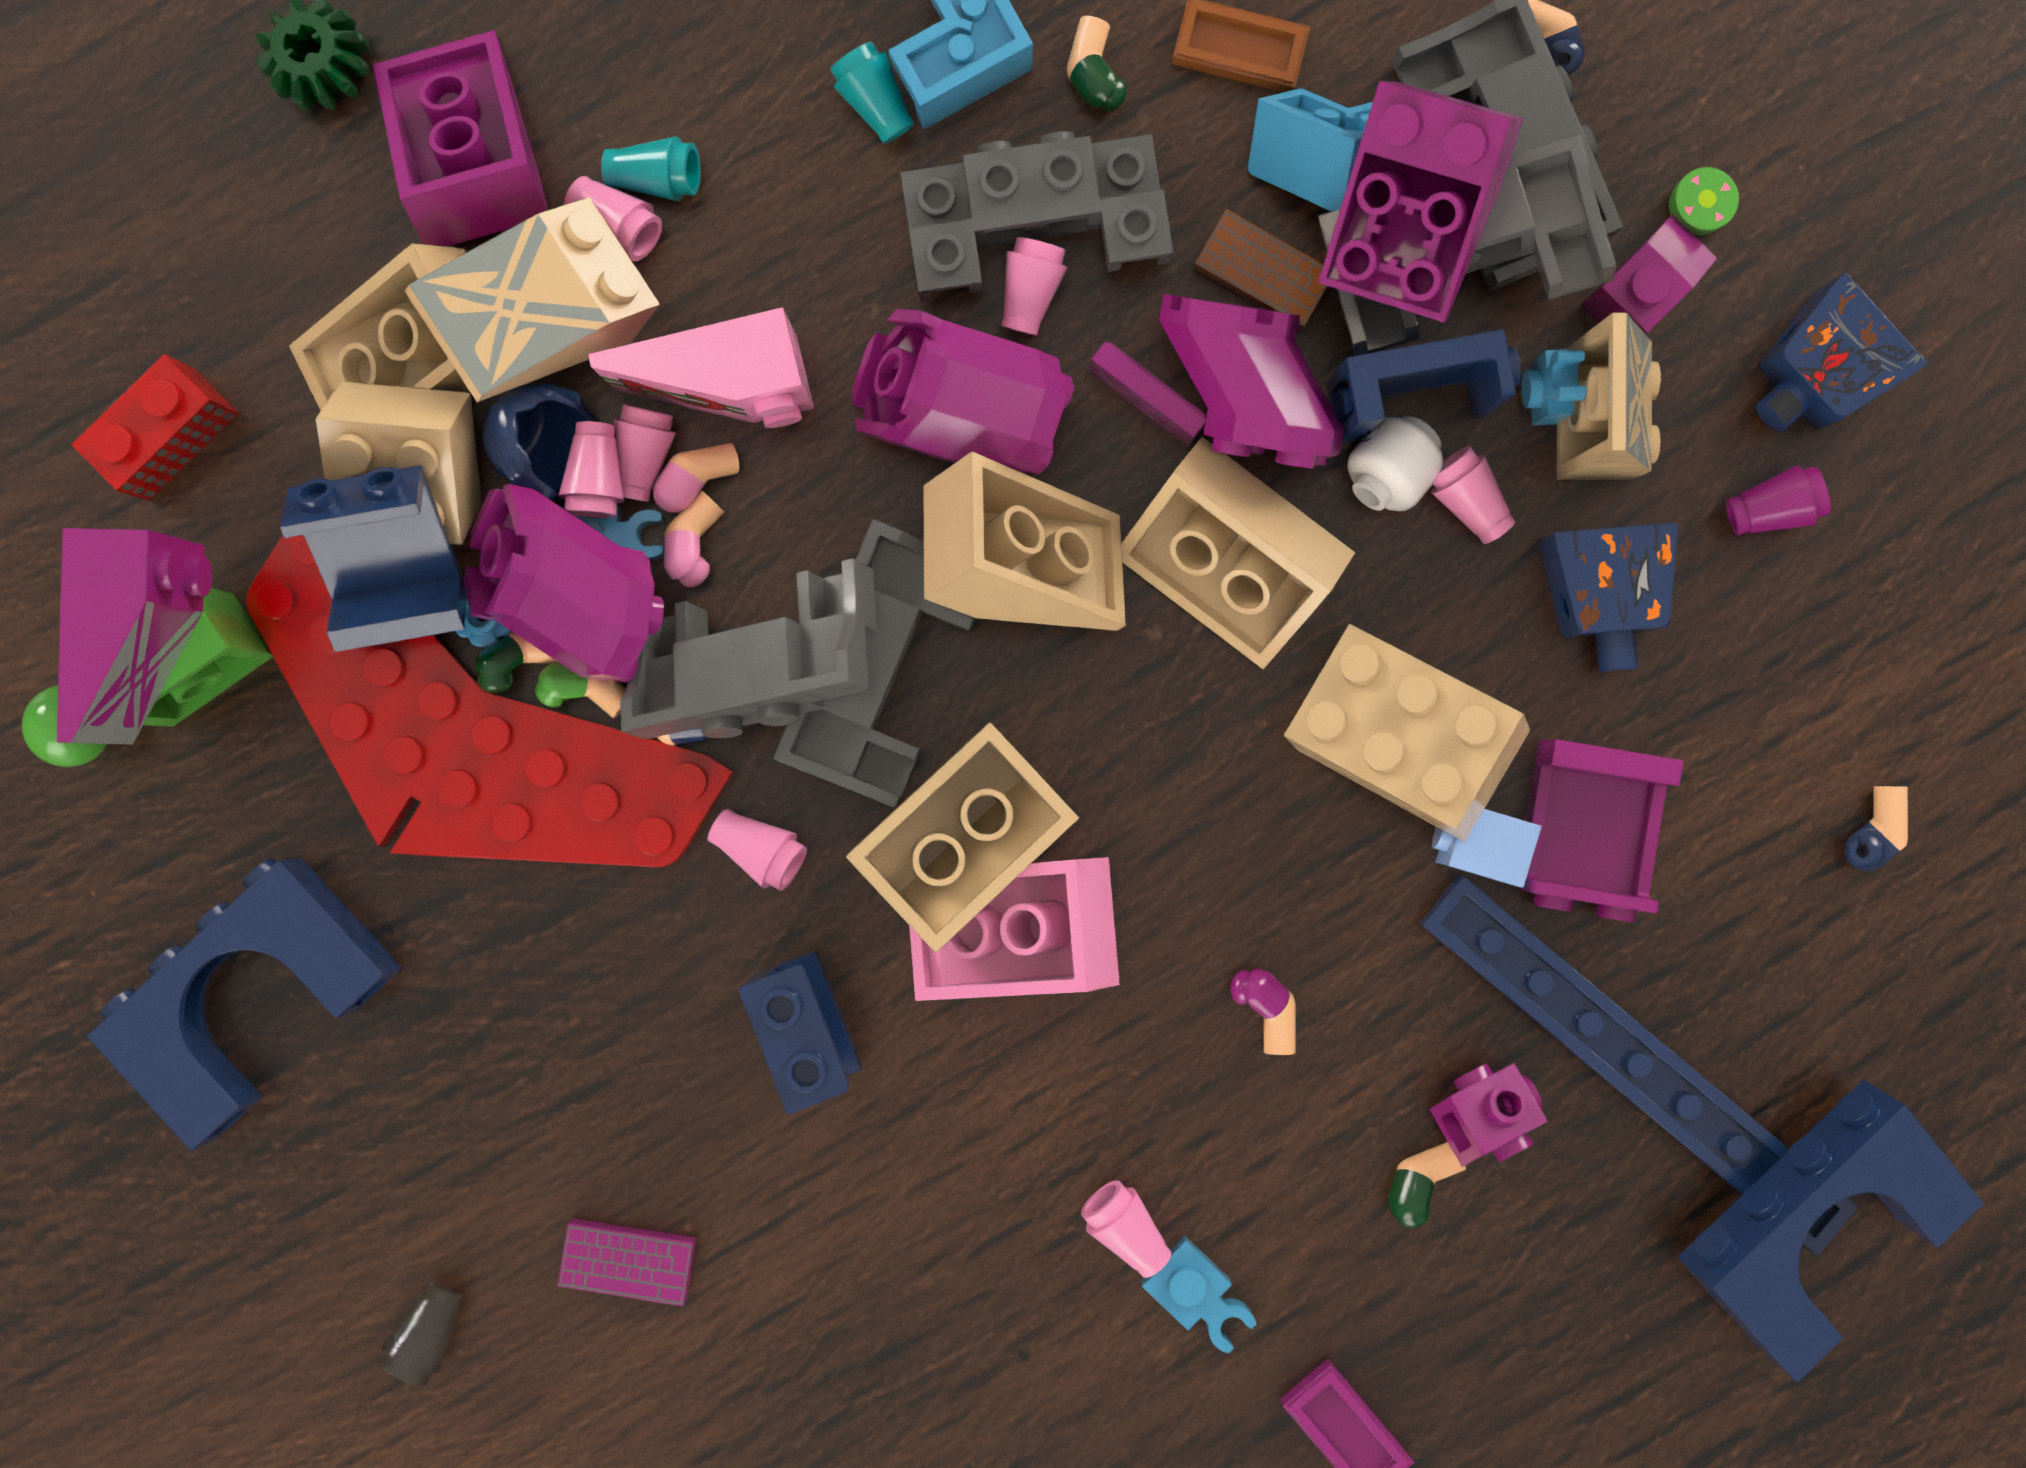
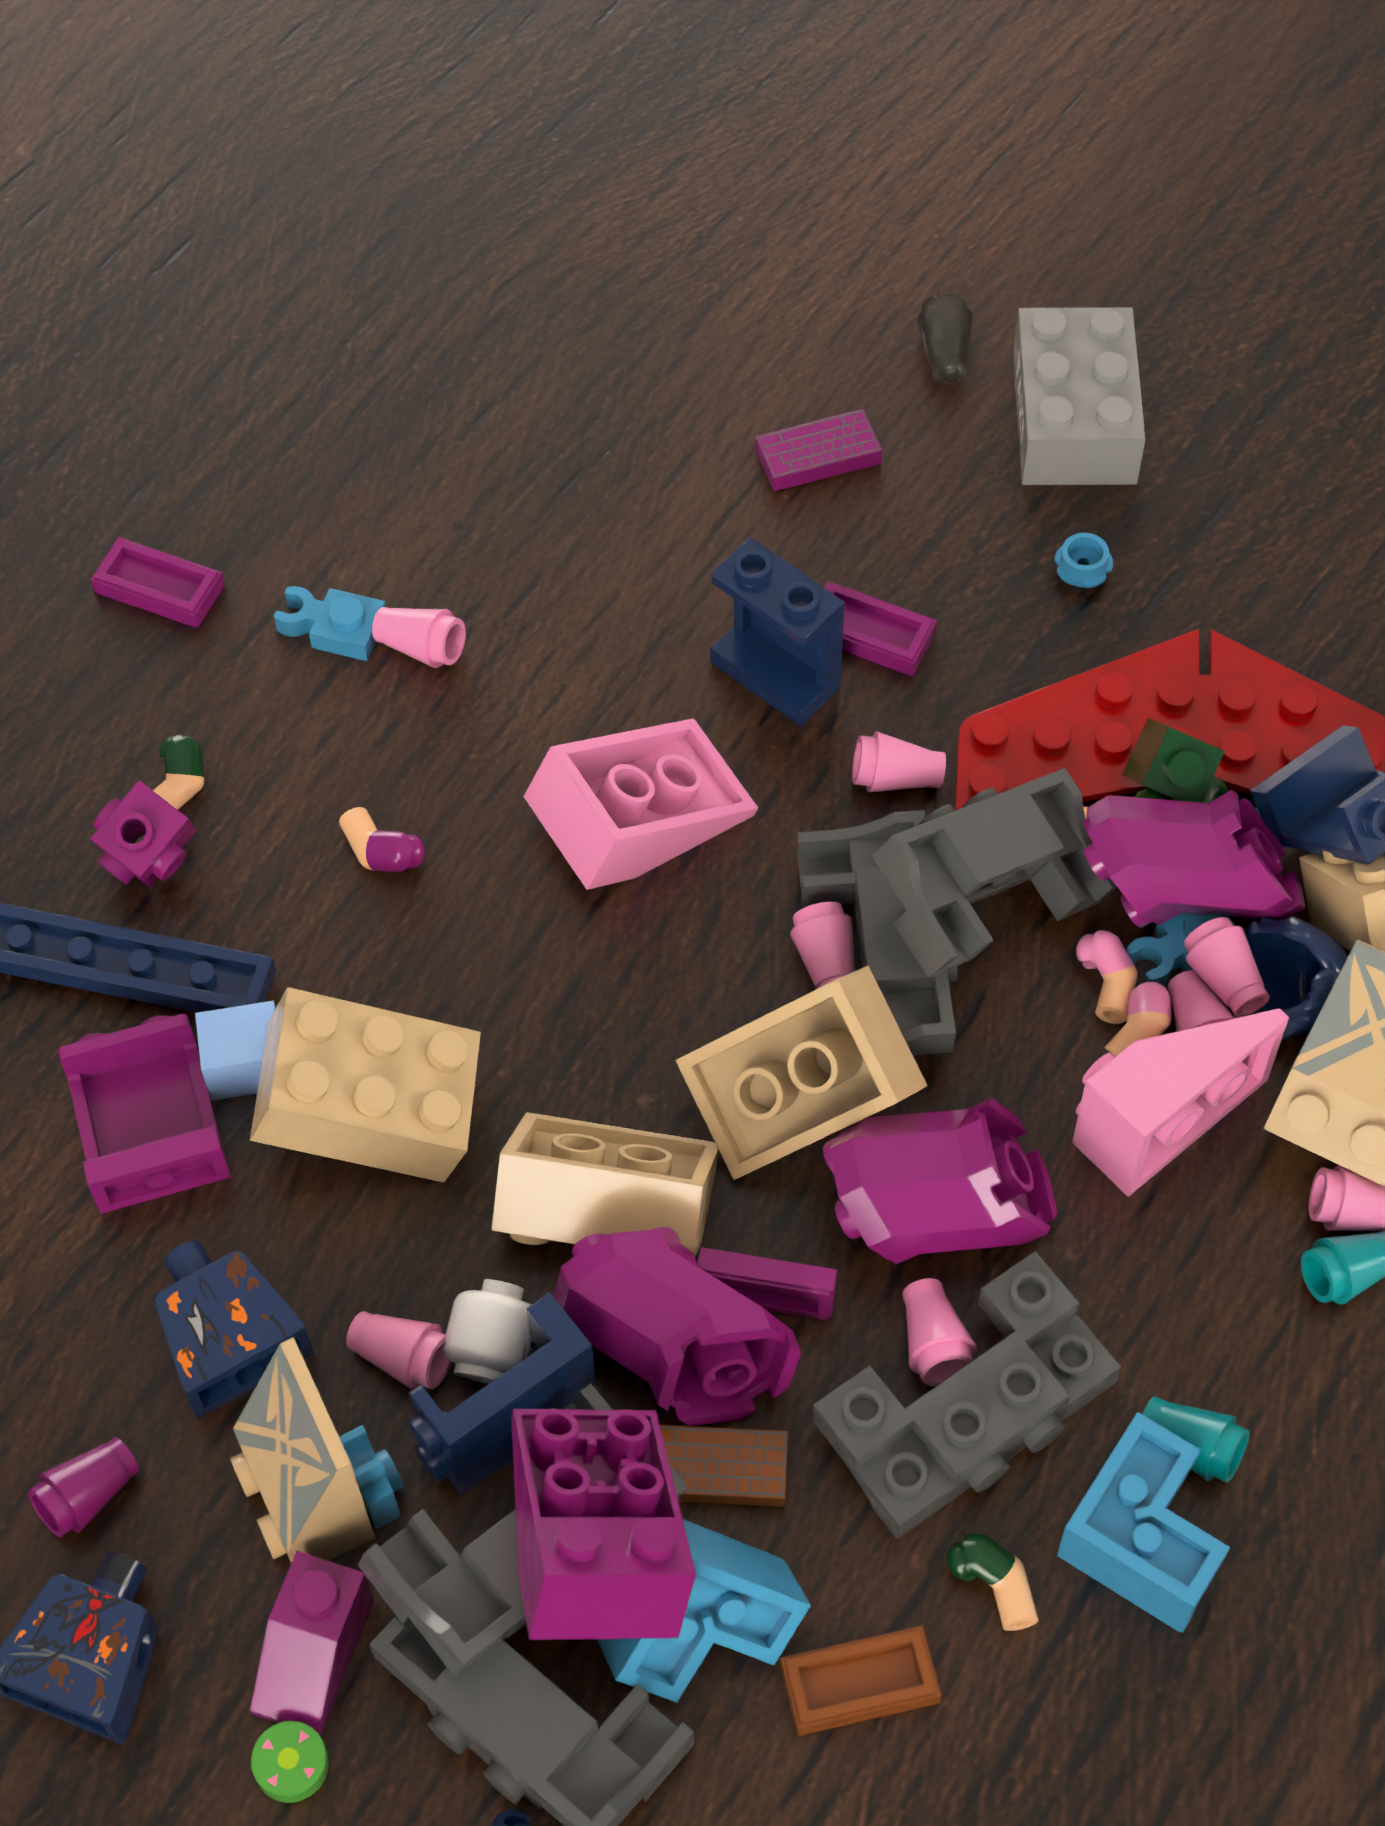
camera: 155 degrees right, 30 degrees down
(161, 1029) = (1247, 545): dark blue arch -> none
(336, 1186) = (1078, 396): none -> light grey brick
(433, 989) = (1087, 550): none -> dark azure plate
(515, 694) = (1172, 762): none -> dark green brick
(694, 1021) = (883, 630): none -> magenta tile
(926, 686) = (824, 941): none -> bright pink cone
(962, 837) = (727, 834): tan slope -> none

